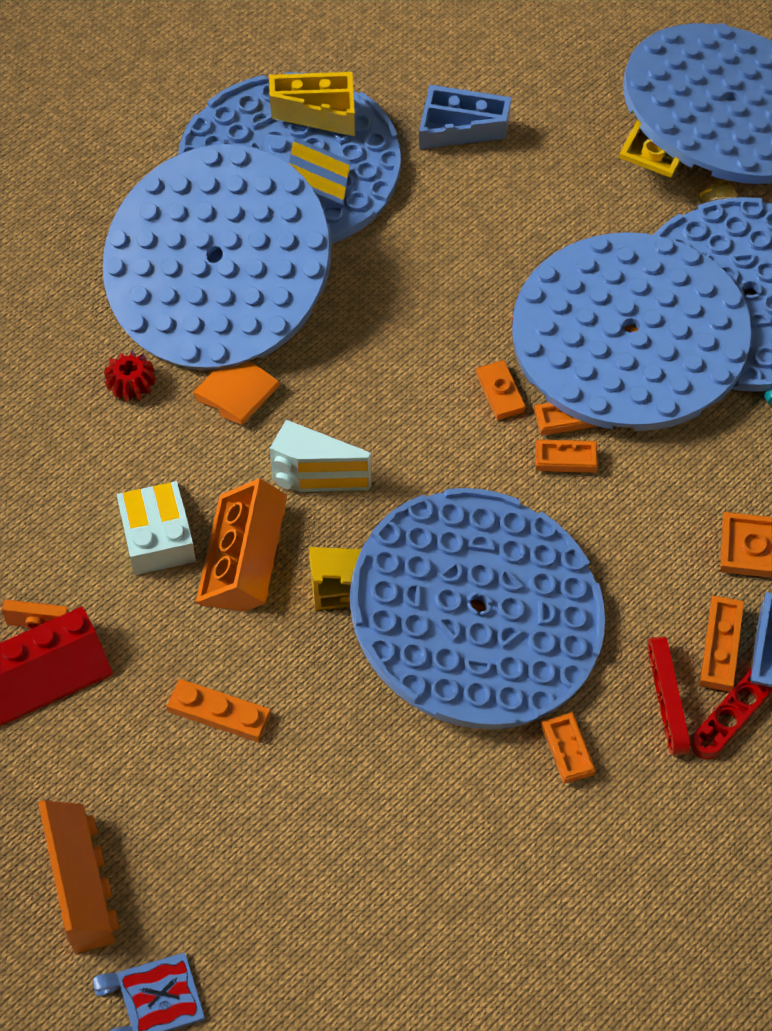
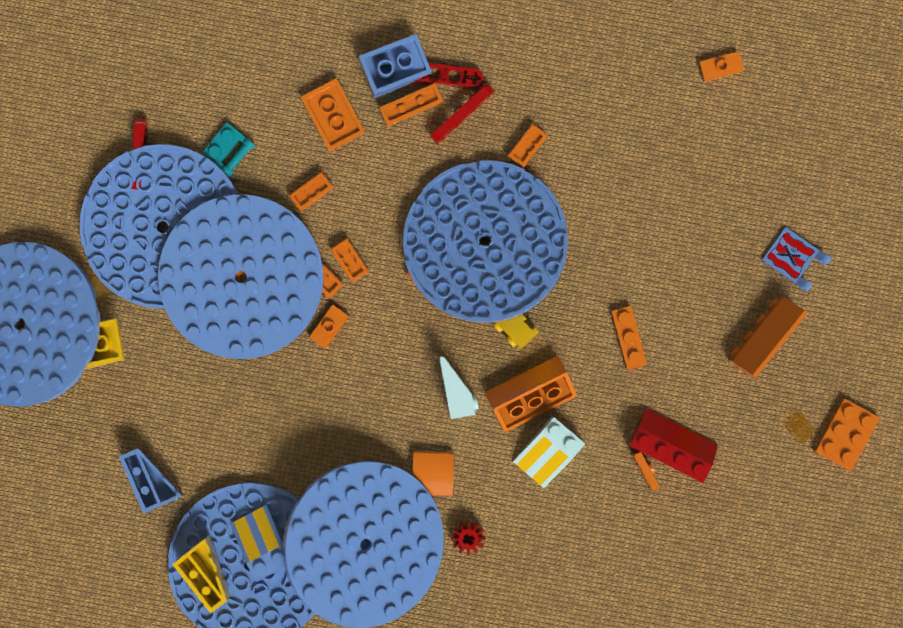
camera: 130 degrees left, 30 degrees up
(684, 466) = (311, 191): none -> orange plate

